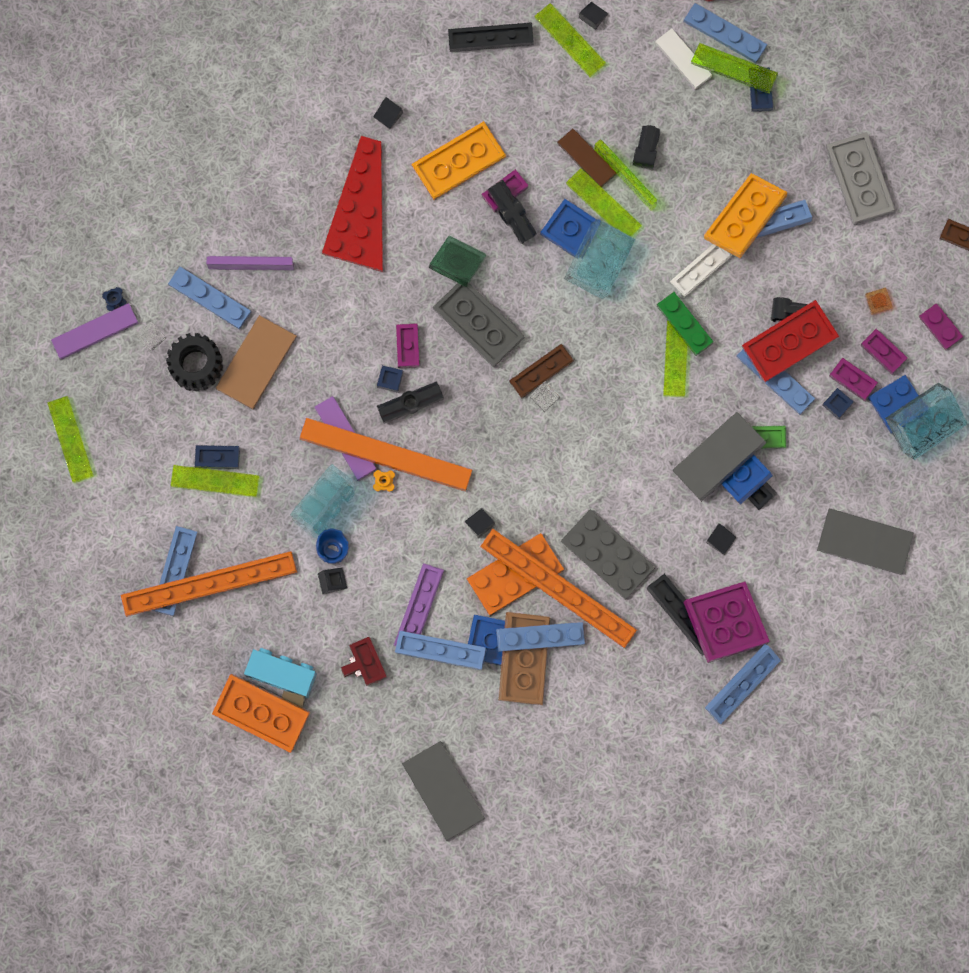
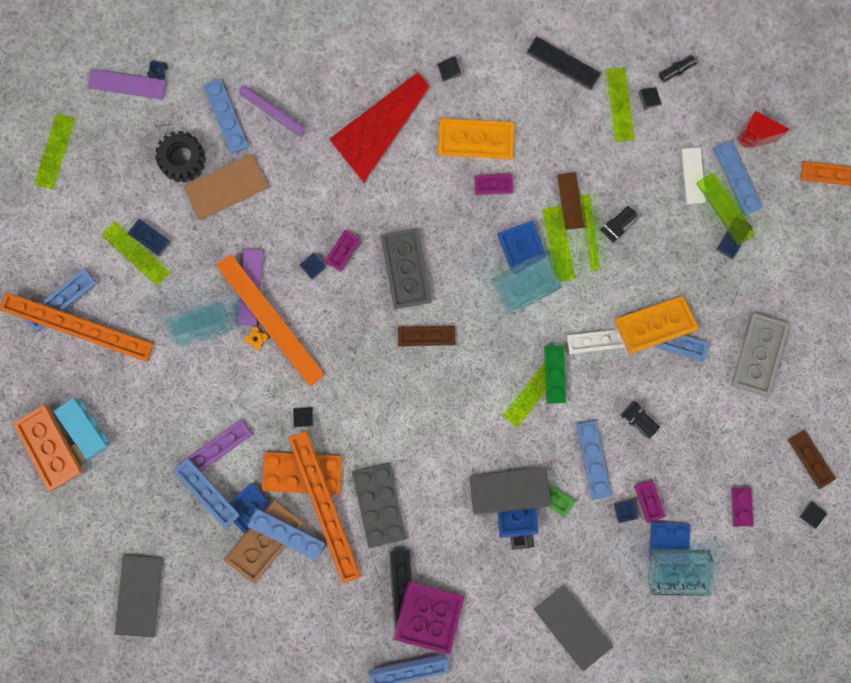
camera: 20 degrees right, 5 degrees up
(328, 538) = (177, 363): blue hair -> none
(332, 580) = (168, 385): black slope -> none
(364, 662) = (148, 462): dark red hinge -> none
(396, 407) = (302, 292): black piece -> none
(457, 261) = (422, 213): clear green tile -> none
(511, 211) = (486, 204): black piece -> none
(721, 539) = (469, 552): black slope -> none
(790, 341) = (622, 442): red plate -> none
(878, 301) = (709, 455): clear orange plate -> none
(884, 351) = (686, 496): magenta plate -> none

